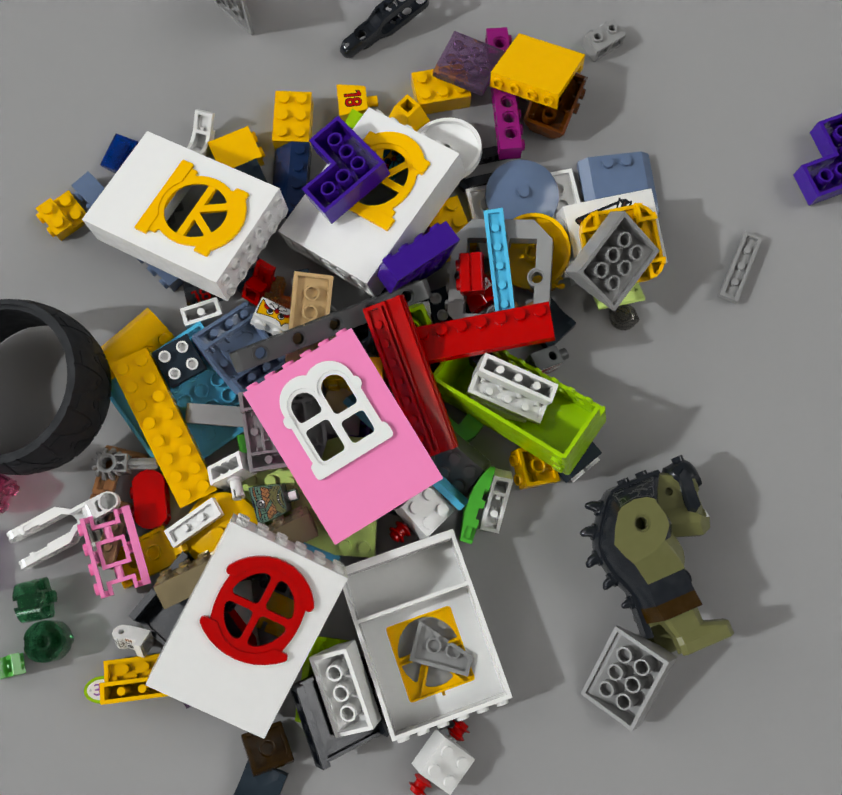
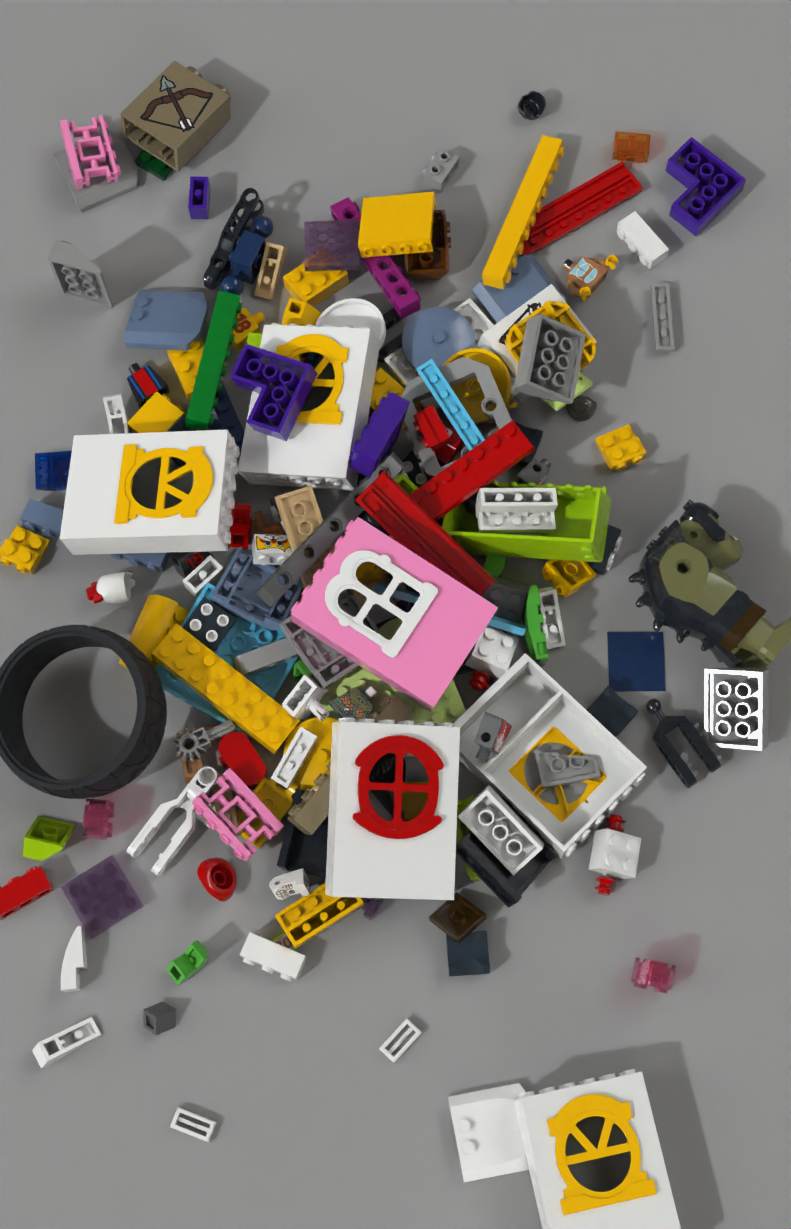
camera: 20 degrees left, 5 degrees down
(34, 600) = (185, 892): clear green brick -> none
(36, 641) = (209, 912): clear green brick -> none
(70, 600) = (218, 878): none -> red hat
(82, 699) = (272, 957): none -> white brick
(115, 286) = (112, 588): none -> white piece
(243, 114) = (145, 383): none -> torso
(288, 65) = (166, 320): none -> sand blue wedge
(307, 121) = (212, 361): none -> green brick
(378, 596) = (491, 735): none -> dark grey torso
(389, 41) = (247, 255): none -> dark blue brick
(406, 62) = (270, 270): none -> tan slope
(506, 621) = (612, 711): none -> black brick
(554, 657) = (667, 724): none -> black piece
(556, 580) = (636, 661): none -> dark blue sticker
(641, 371) = (621, 448): none -> yellow plate
(658, 111) = (523, 212): none -> yellow brick
(689, 196) = (587, 275): none -> medium nougat torso
(706, 130) = (581, 206): none -> red plate
(715, 18) = (531, 105): none -> black hair
(756, 186) = (642, 240): none -> white brick
(788, 96) = (631, 147): none -> clear orange brick

